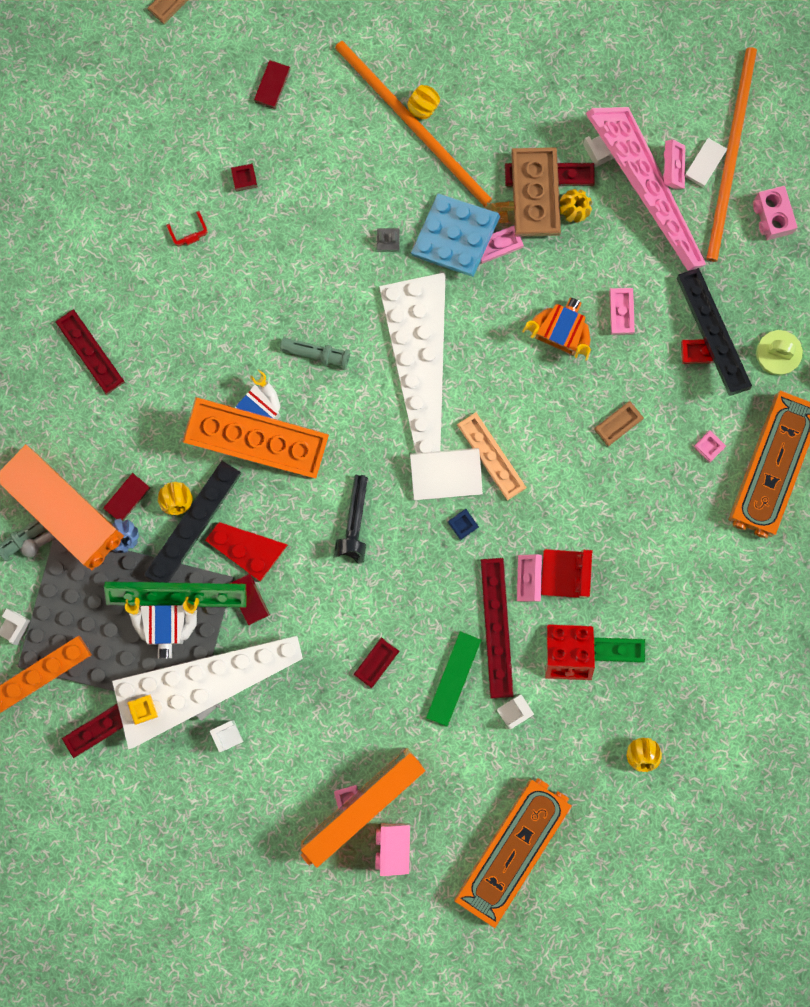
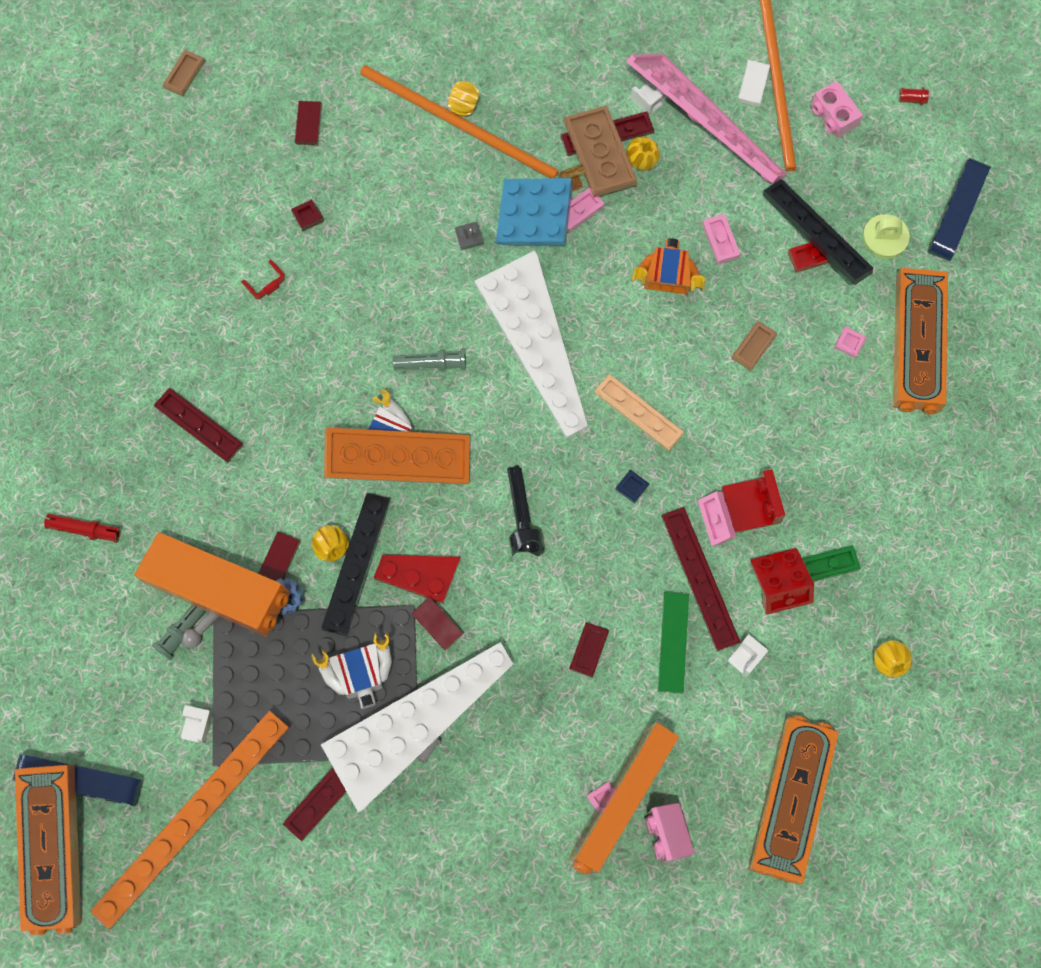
camera: 20 degrees left, 10 degrees down
(142, 709) = (362, 763): yellow tile -> none
(175, 594) = (399, 627): green tile -> none
(226, 736) = (457, 770): white panel -> none
(446, 473) = (599, 441): white tile -> none
(674, 164) = (725, 92): bright pink plate -> none

